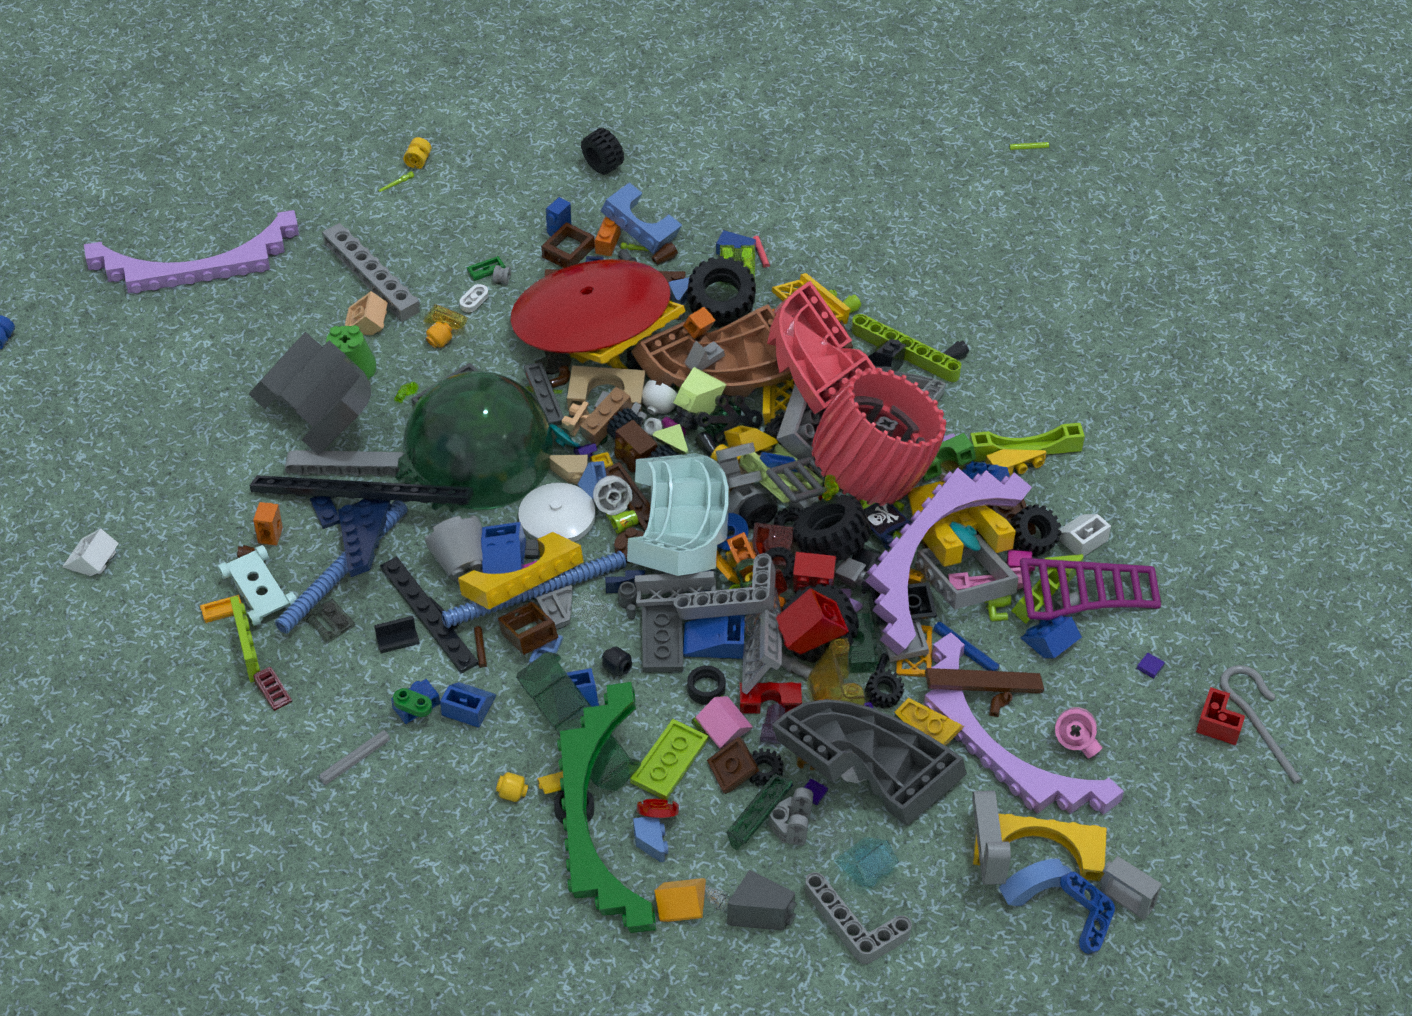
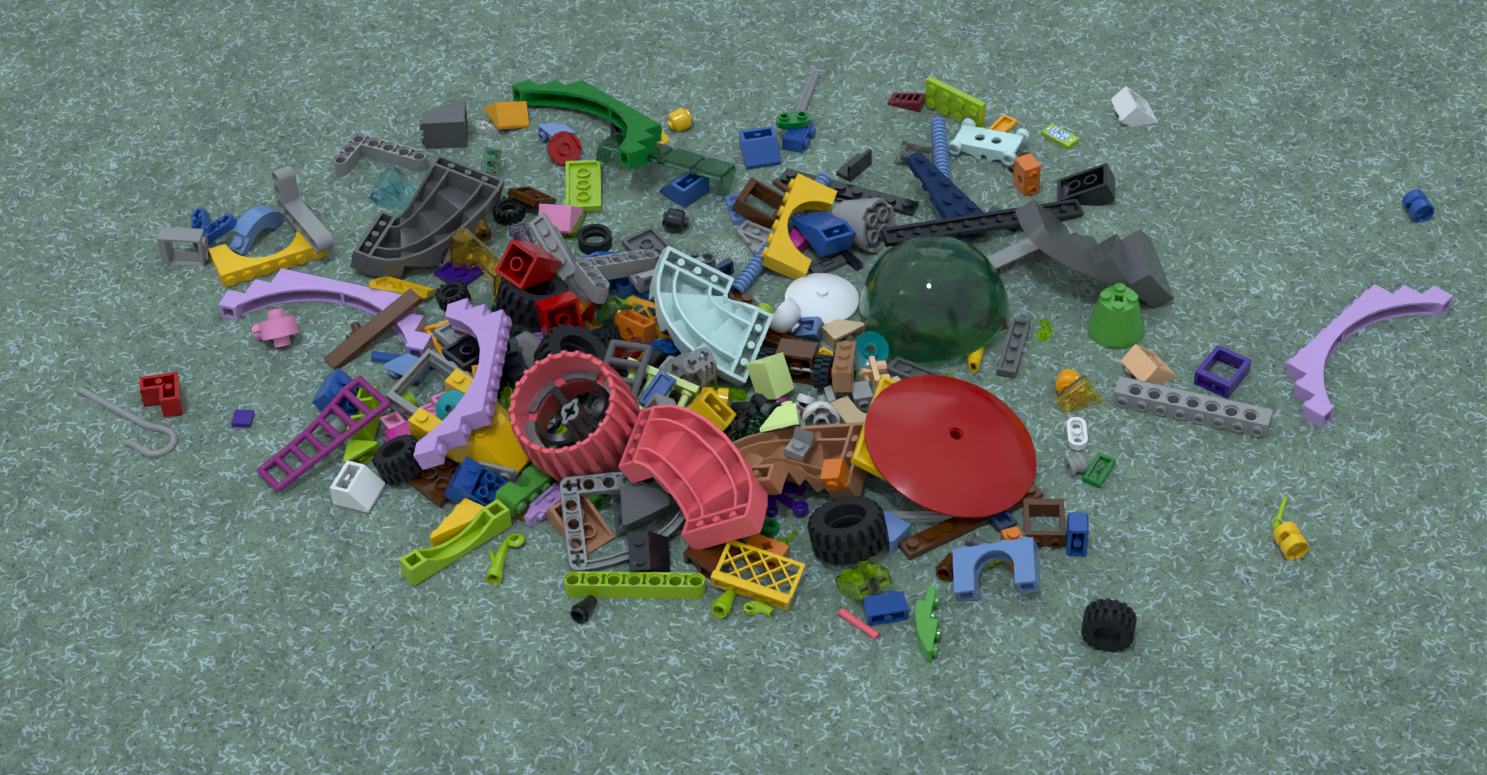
camera: 150 degrees right, 5 degrees down
(183, 569) = (1060, 136): none -> lime tile
(226, 495) = (1089, 186): none -> black slope
(319, 295) = (1222, 386): none -> dark purple window
(719, 220) = (927, 625): none -> bright green slope
(973, 628) = (402, 364): none -> medium blue slope
(1007, 411) = (495, 572): none -> lime plant

